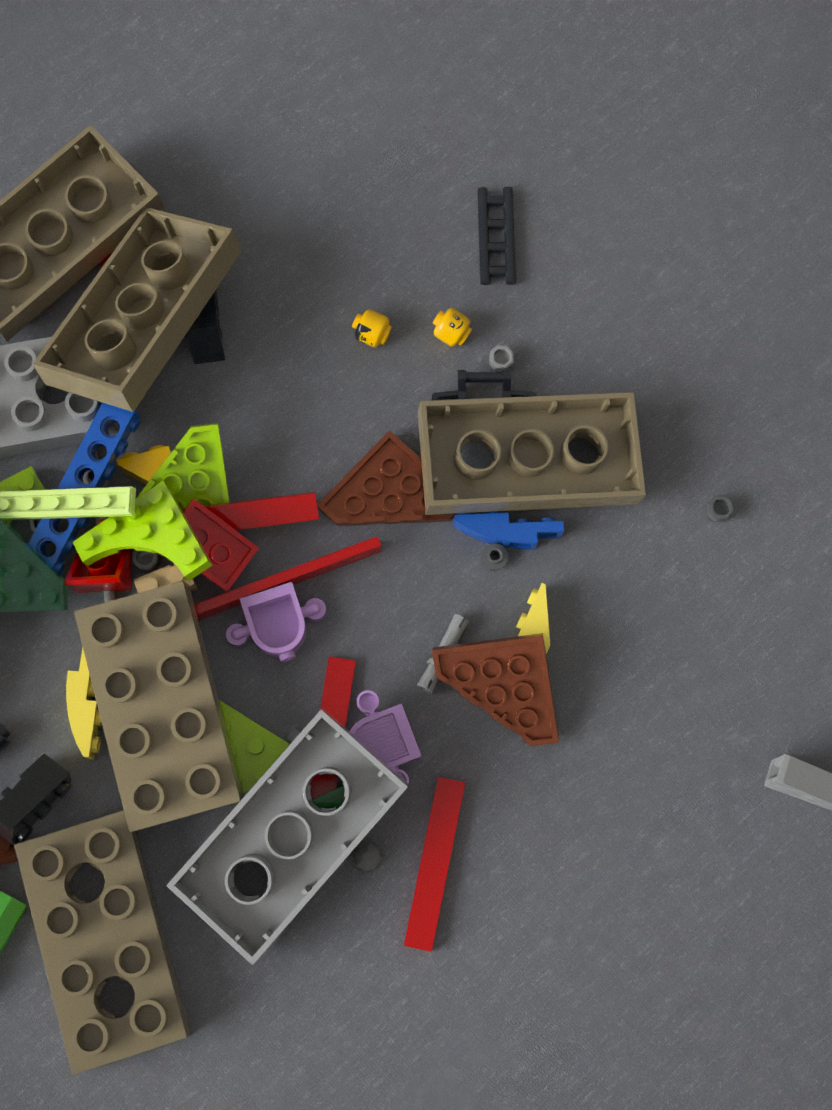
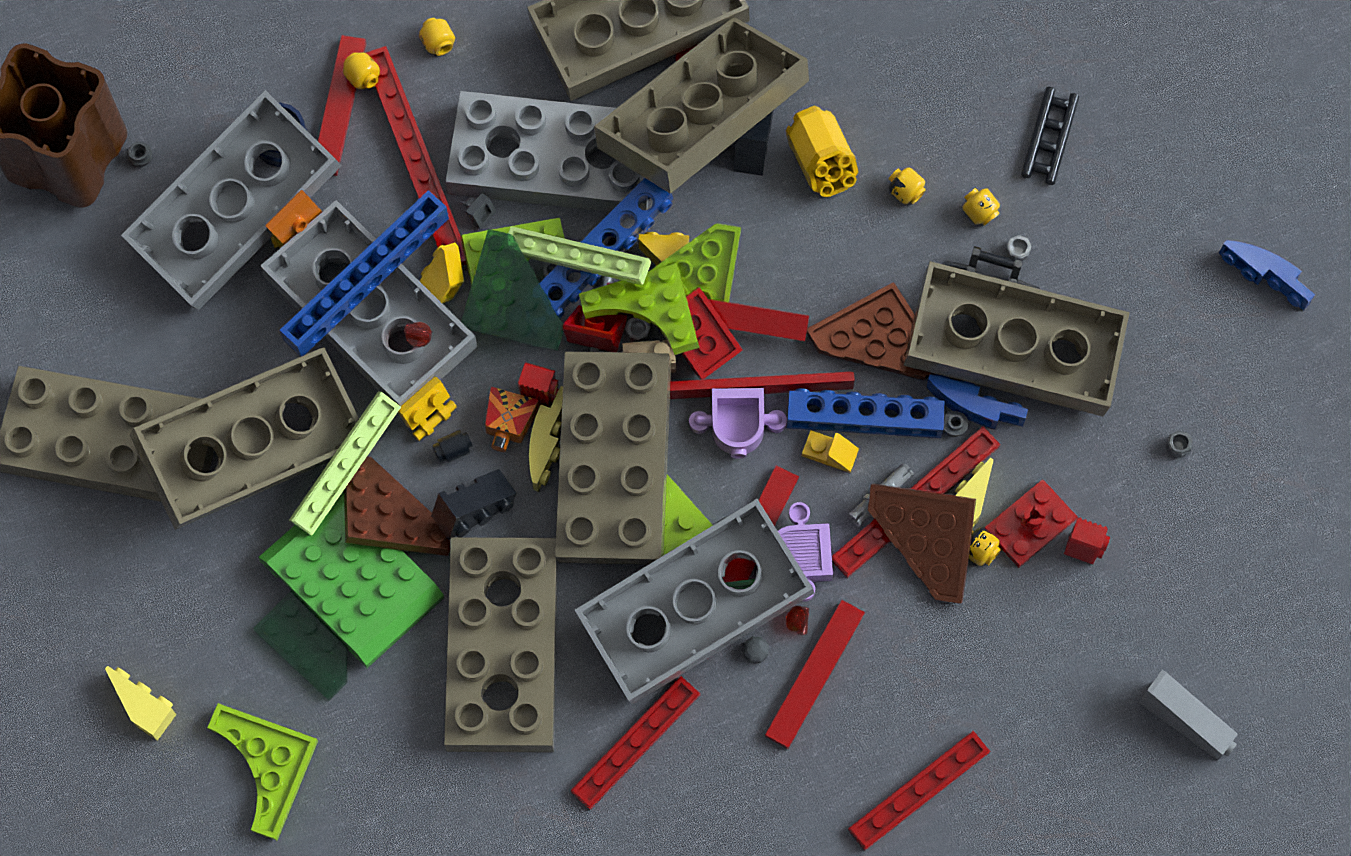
camera: 20 degrees right, 5 degrees down
(39, 693) = (509, 417): none -> torso
(58, 651) = (538, 384): none -> red brick
(272, 999) = (635, 743): none -> red tile
(277, 318) = (822, 151): none -> yellow brick
(380, 624) = (830, 451): none -> yellow slope
(392, 586) = (877, 423): none -> blue brick
(400, 812) = (798, 620): none -> clear red plate
(492, 626) = (938, 480): none -> red tile
(562, 676) = (983, 547): none -> yellow head
(576, 952) = (918, 790): none -> red tile
(600, 635) = (1031, 523): none -> red plate
(664, 639) = (1087, 541): none -> red brick
(740, 303) = (1262, 264): none -> slope

